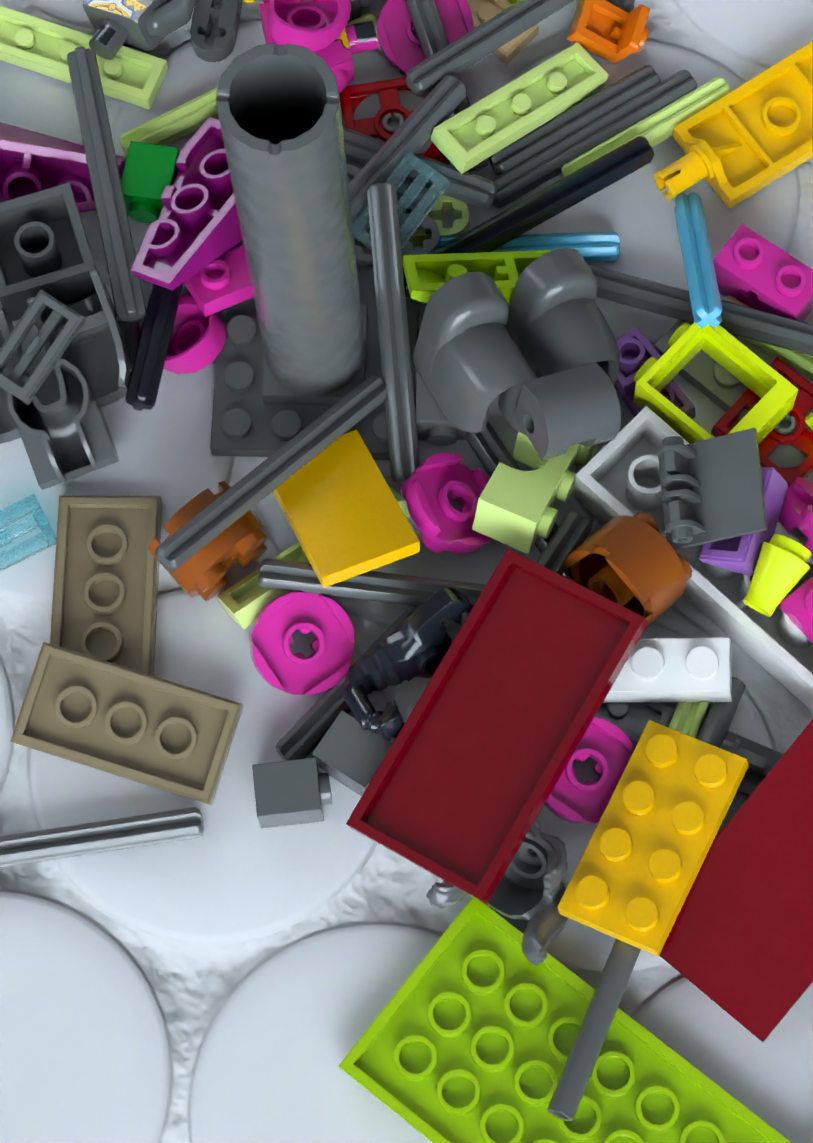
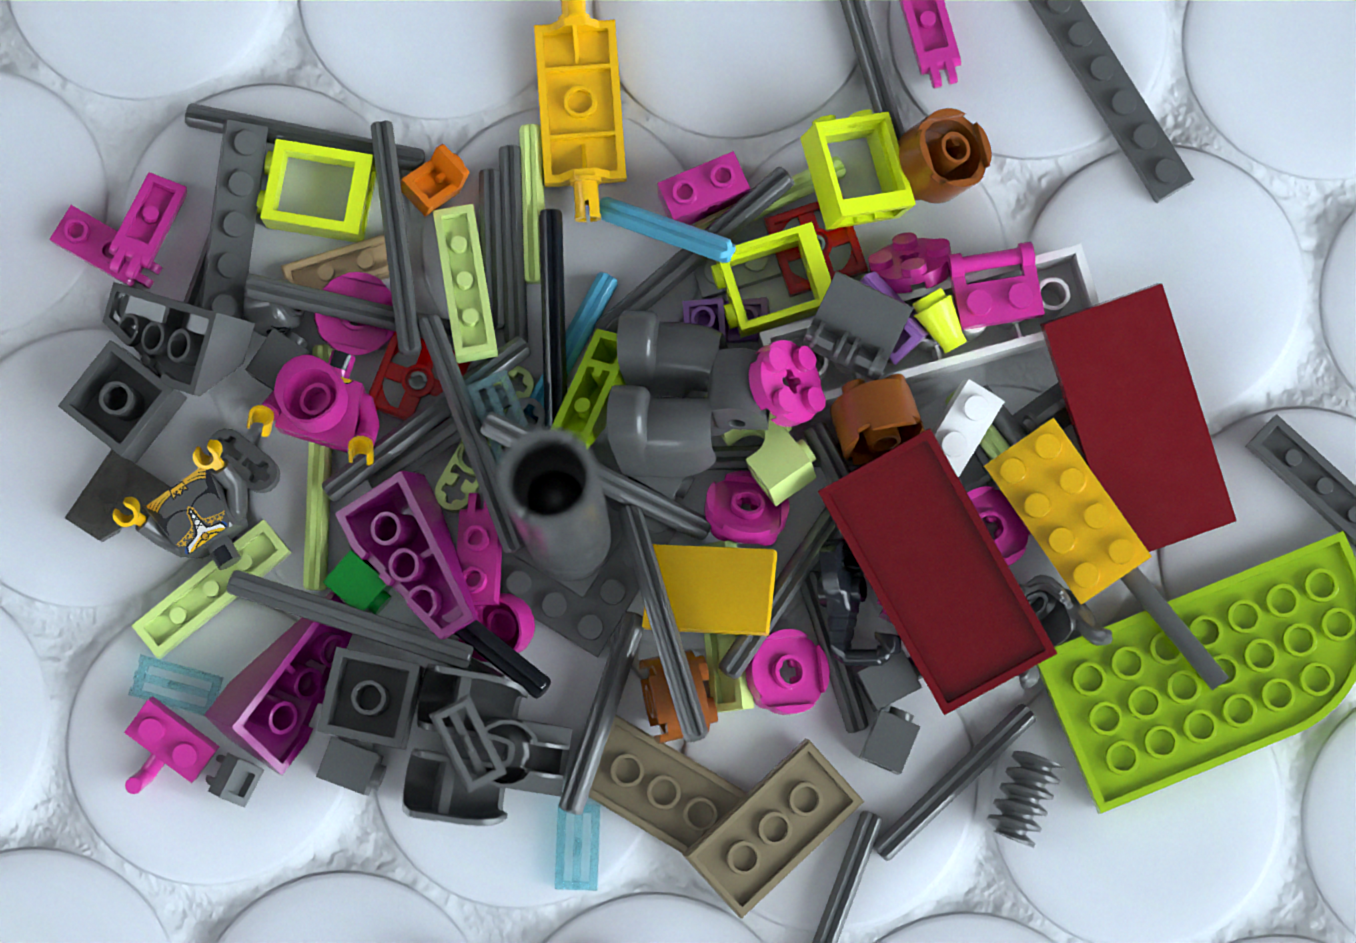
camera: 65 degrees left, 10 degrees up
(142, 483) = (602, 713): none -> dark grey axle
(286, 890) = (954, 782): none -> dark grey axle
(307, 970) = (1024, 797): none -> dark grey piece
(629, 451) = (804, 392): none -> dark pink plate

